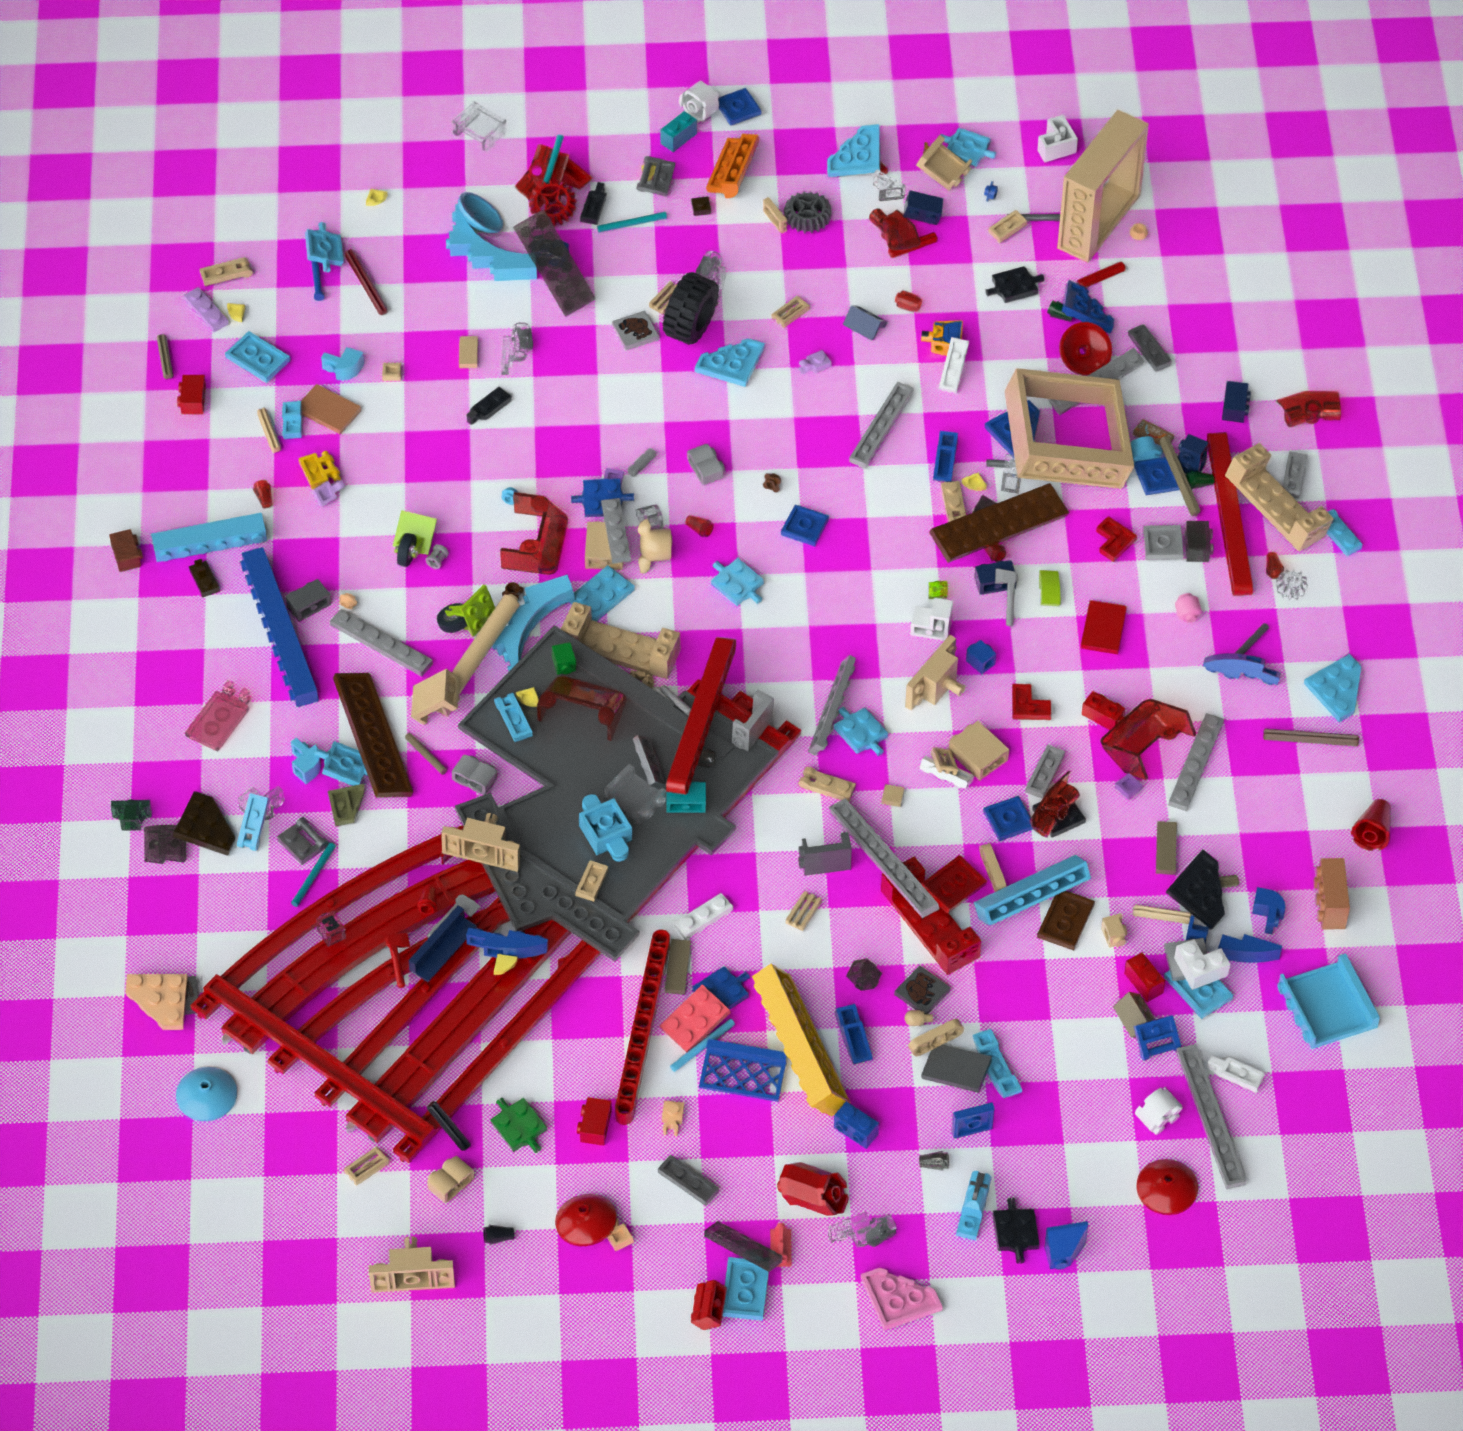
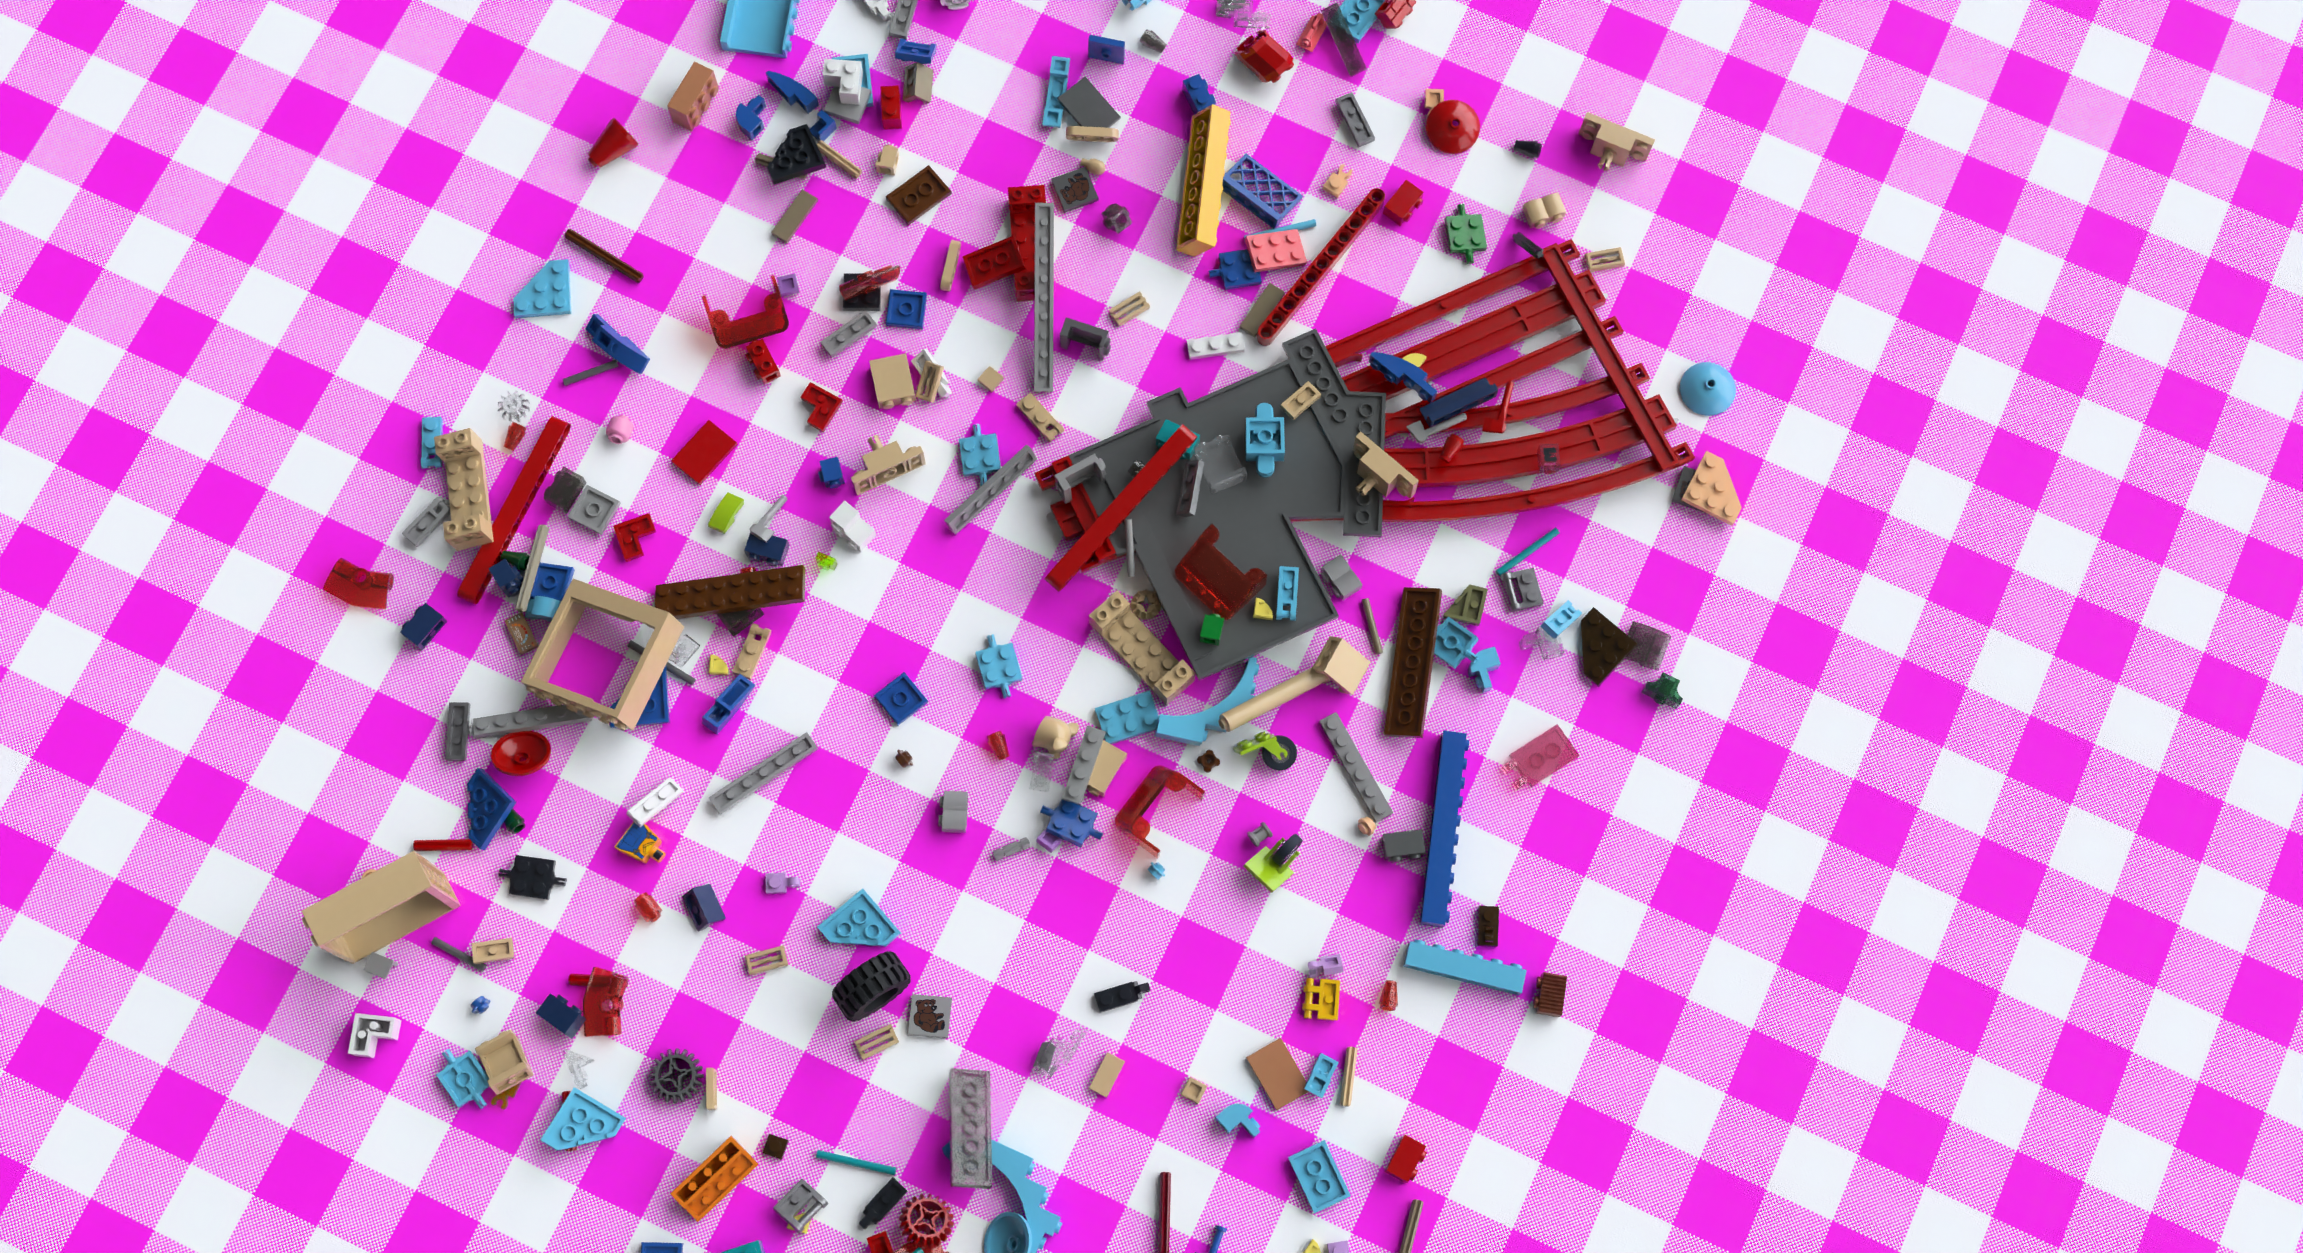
camera: 155 degrees left, 20 degrees up
(711, 268) = (819, 1042): clear plate -> none
(853, 1034) = (1154, 177): blue slope -> none
(1032, 890) = (932, 225): medium azure brick -> none
(1196, 762) = (715, 282): light grey plate -> none

